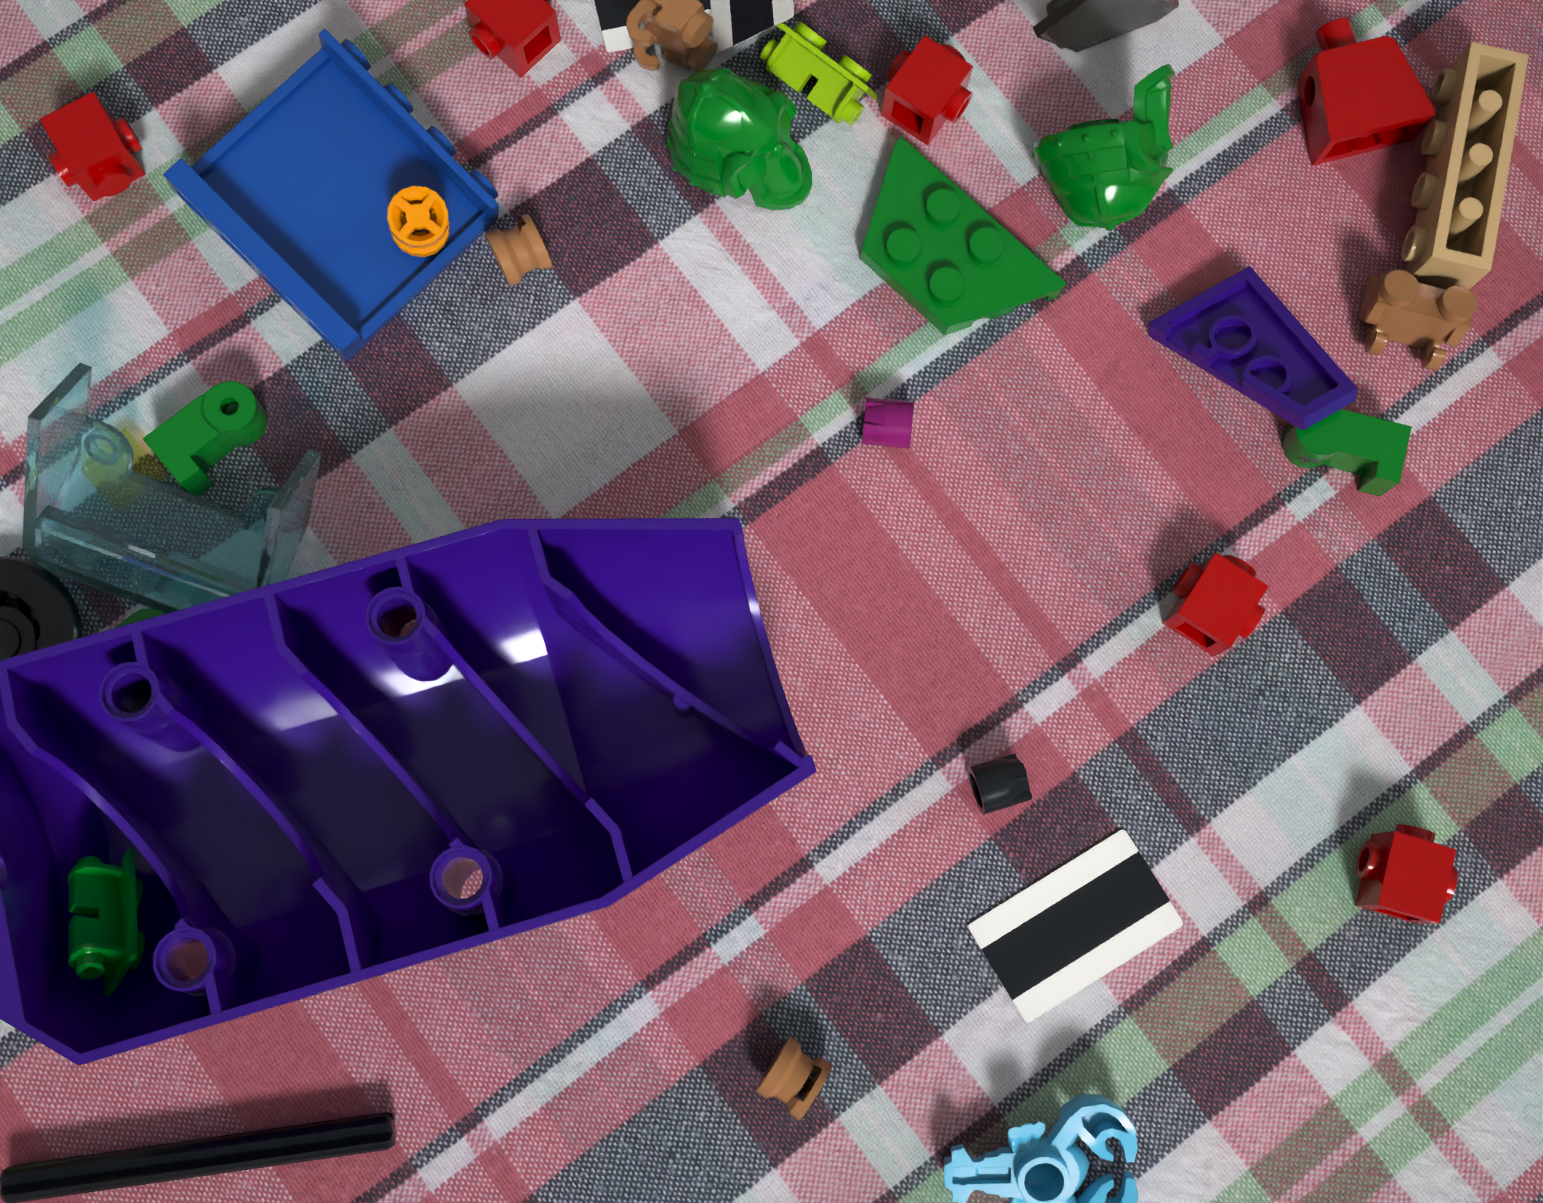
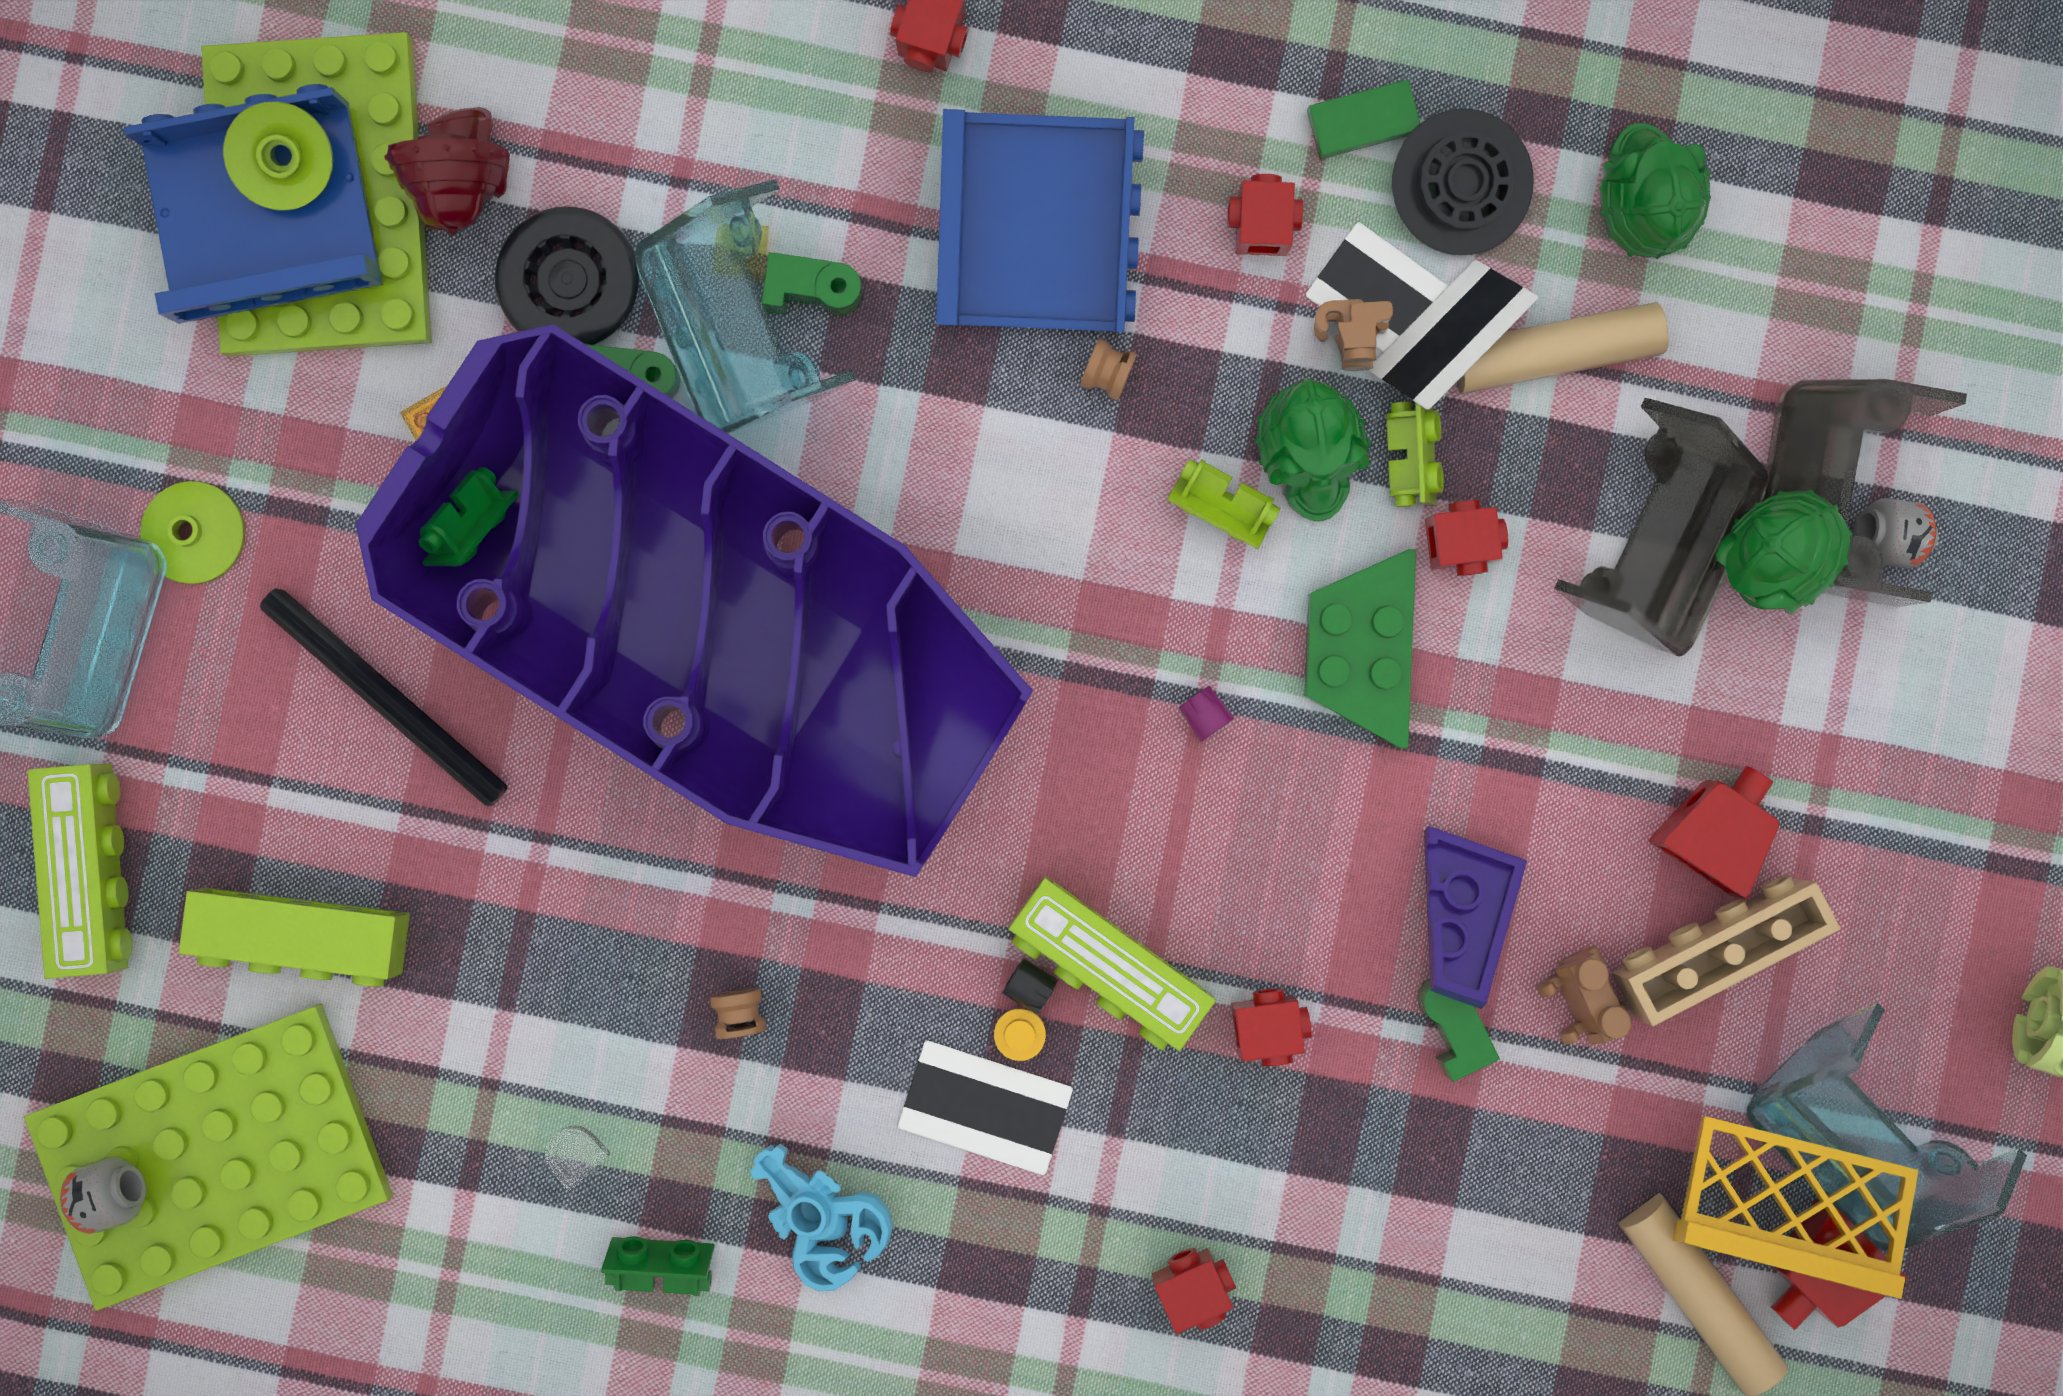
camera: 55 degrees right, 10 degrees up
(417, 210) = (1066, 291): light orange wheel -> none
(745, 247) = (1203, 494): none -> lime hinge
(1035, 831) = (1019, 1034): none -> yellow plate
(1041, 691) = (1110, 963): none -> lime brick
(1109, 166) = (1510, 708): green head -> none

